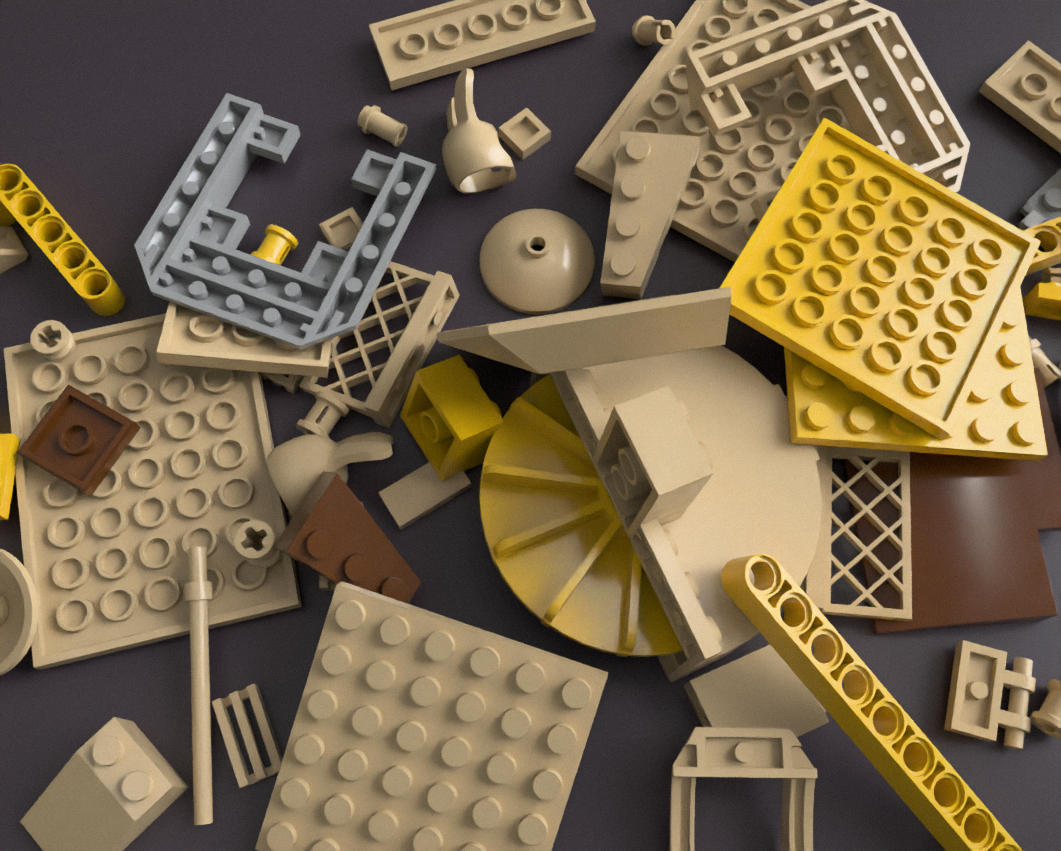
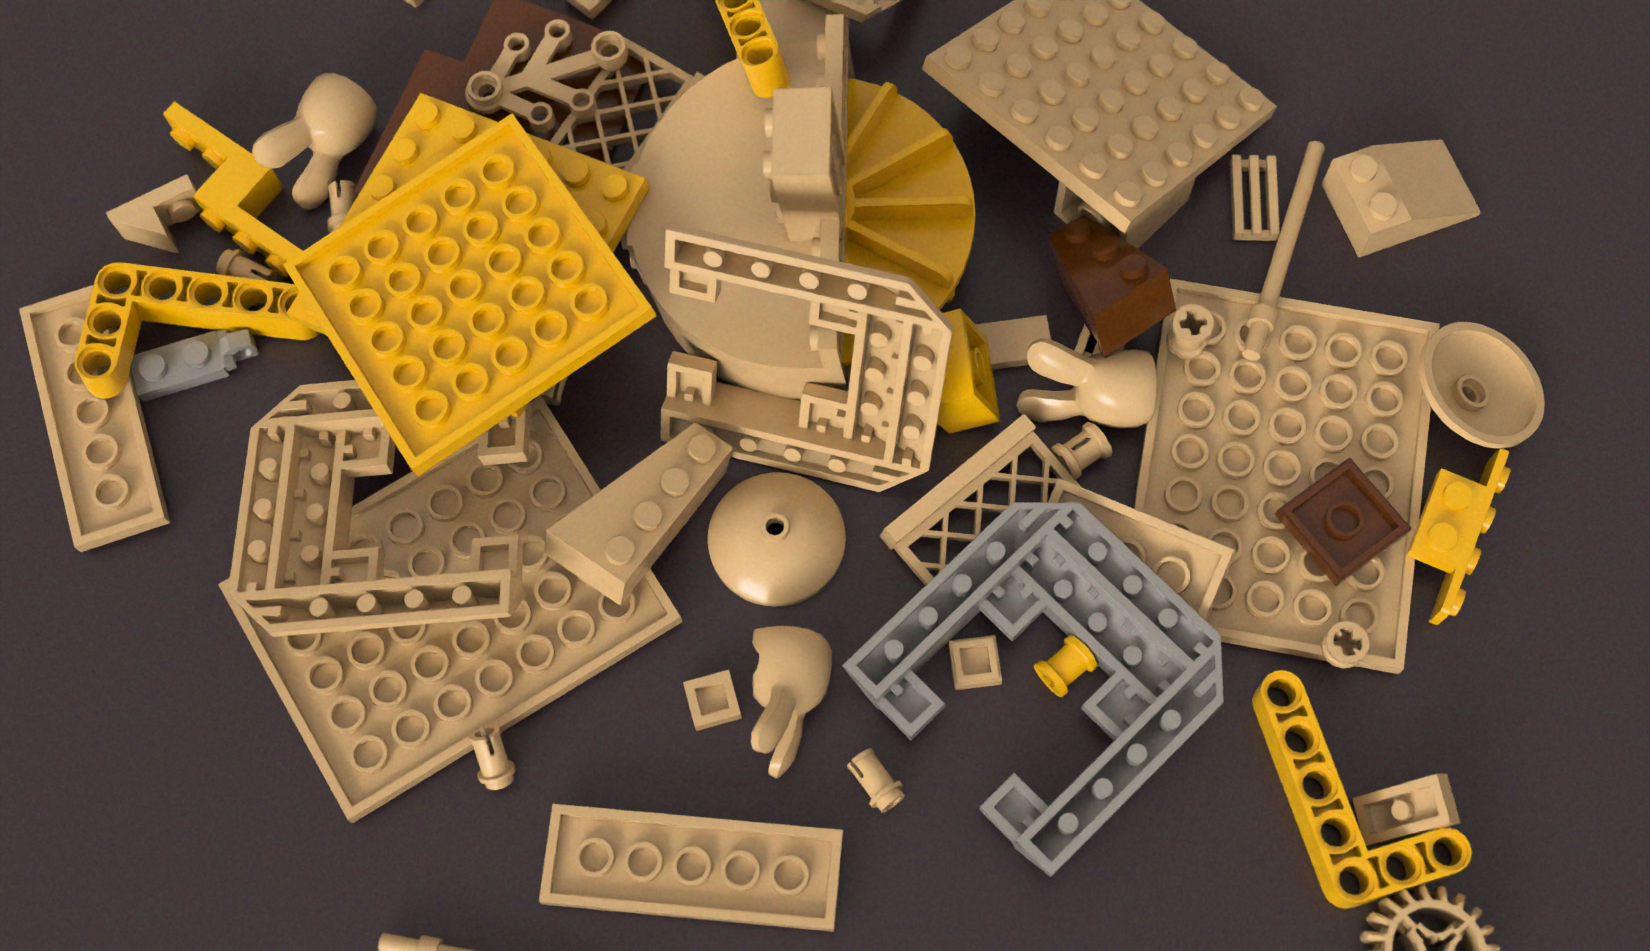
camera: 150 degrees left, 0 degrees up
(960, 536) = (542, 76): none -> tan plant

